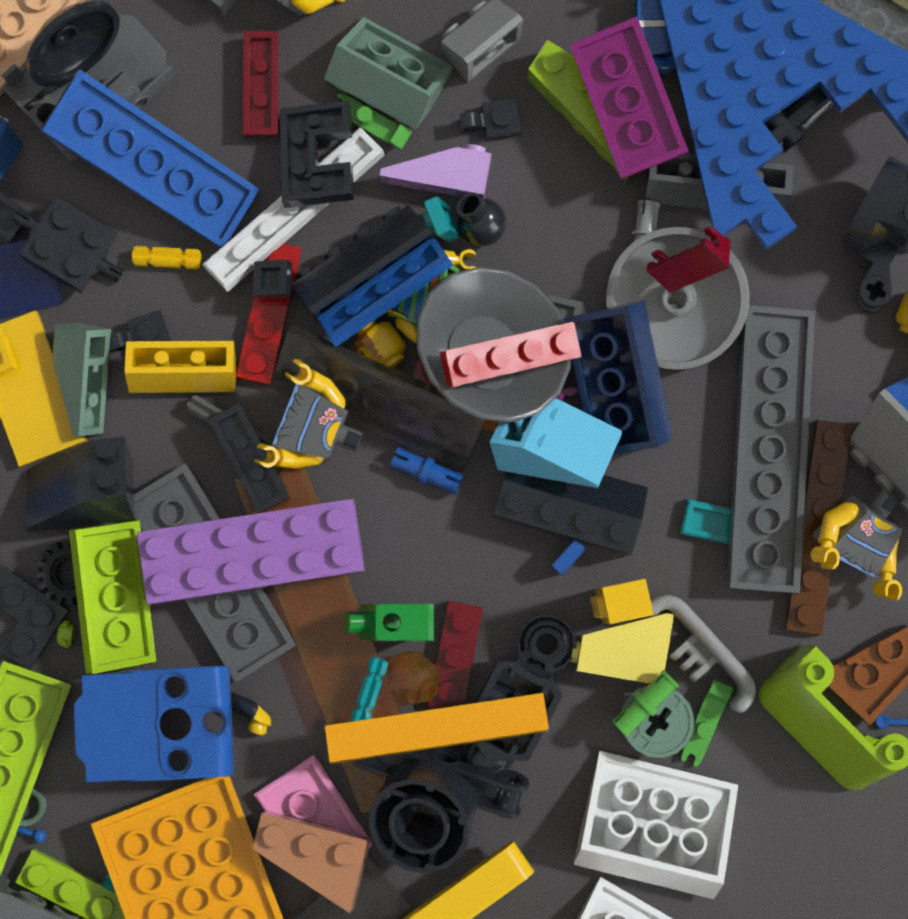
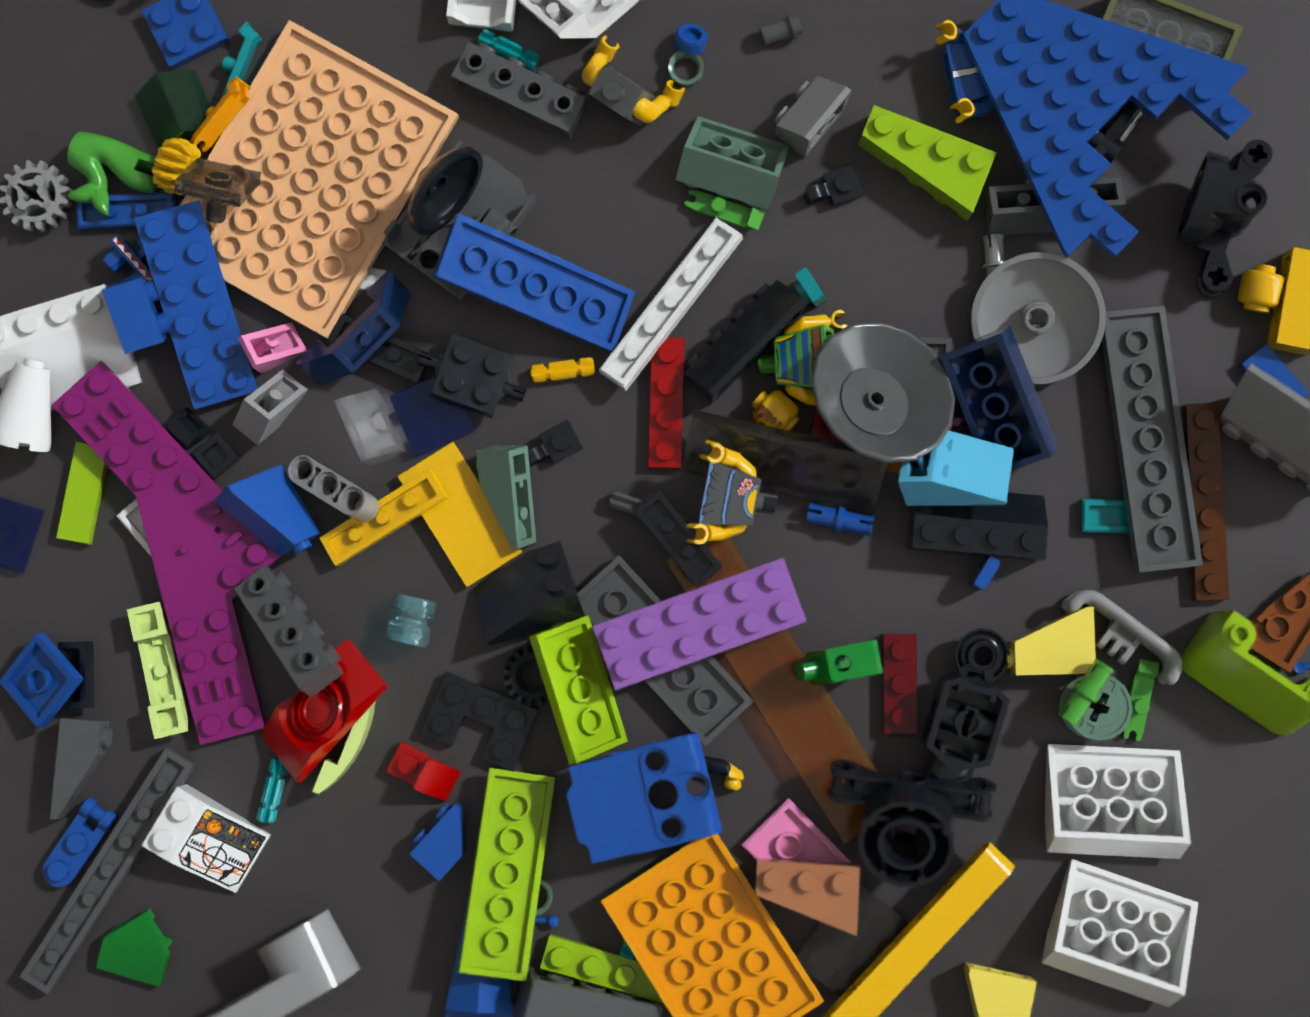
camera: 10 degrees left, 0 degrees up
(66, 634) = (540, 732): lime piece -> none
(180, 366) = (598, 467): yellow brick -> none
(261, 84) = (617, 195): dark red plate -> none
(272, 279) = (666, 371): black plate -> none
(301, 177) = (674, 274): black plate -> none
(369, 689) = (829, 730): teal axle -> none
(384, 291) = (773, 362): blue tile -> none
(413, 677) = (867, 710): clear orange head -> none
(436, 728) = (903, 752): light orange tile -> none
(445, 172) = (810, 242): lavender slope -> none
(480, 219) = (844, 281): black piece -> none
(510, 354) = (902, 398): plate -> none
(622, 602) = (1047, 604): yellow brick -> none
(629, 98) = (962, 143): magenta plate -> none
(691, 263) = (1049, 284): dark red hinge -> none
(864, 538) = (1253, 504): torso -> none

